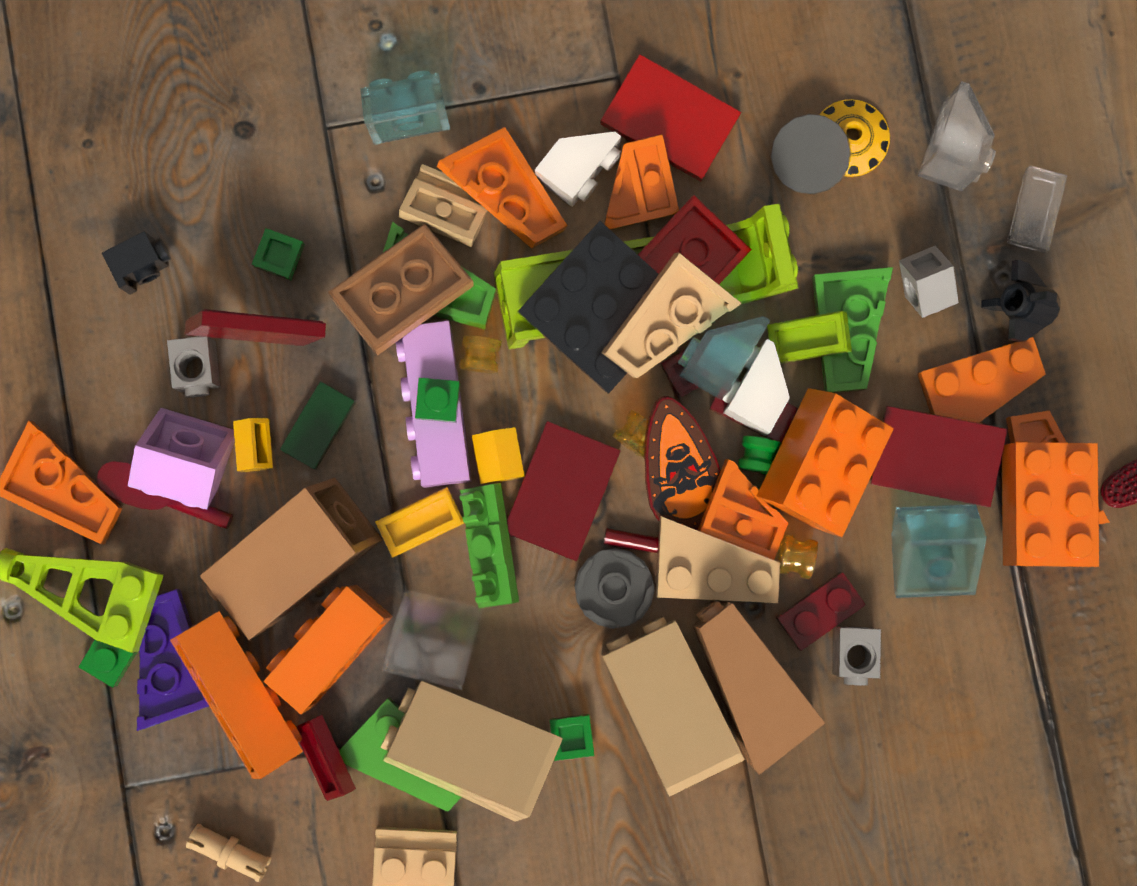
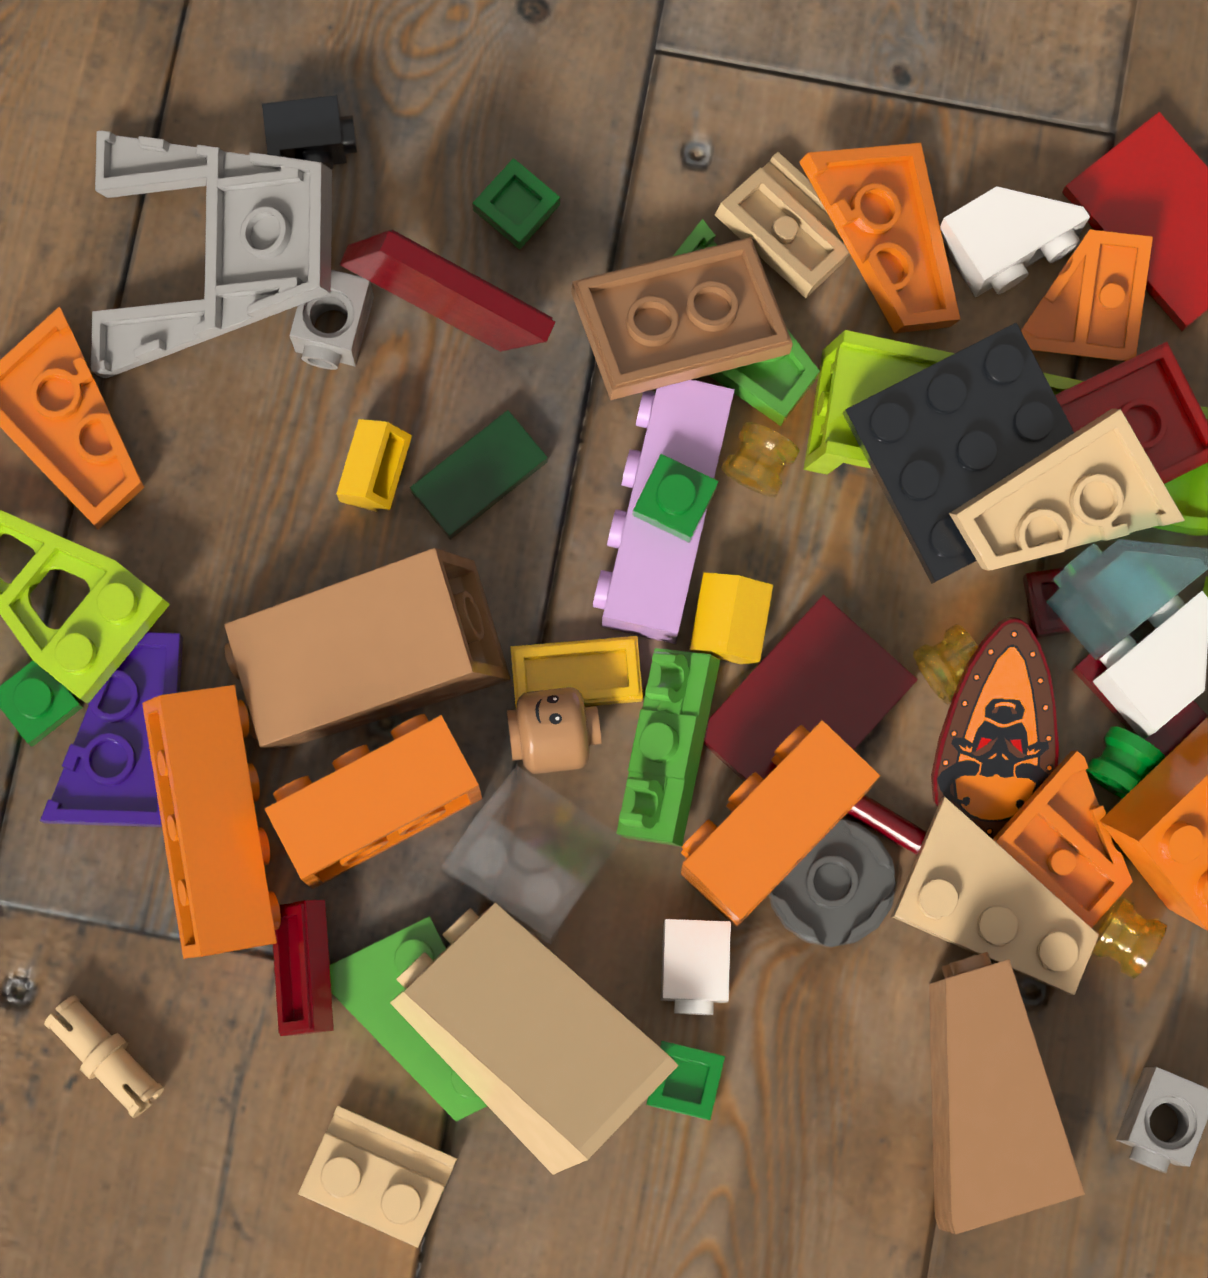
camera: 20 degrees right, 5 degrees down
(114, 479) = (194, 476): dark red piece -> none
(133, 339) = (261, 243): none -> light grey wing
(181, 458) = (262, 445): lavender slope -> none
(404, 107) = (785, 61): clear light blue slope -> none
(418, 563) = (553, 730): none -> medium nougat head
(552, 668) = (695, 964): none -> white brick
(566, 572) = (776, 820): none -> orange brick
(671, 705) = (855, 1086): tan slope -> none
(820, 611) = (1132, 1036): dark red plate -> none

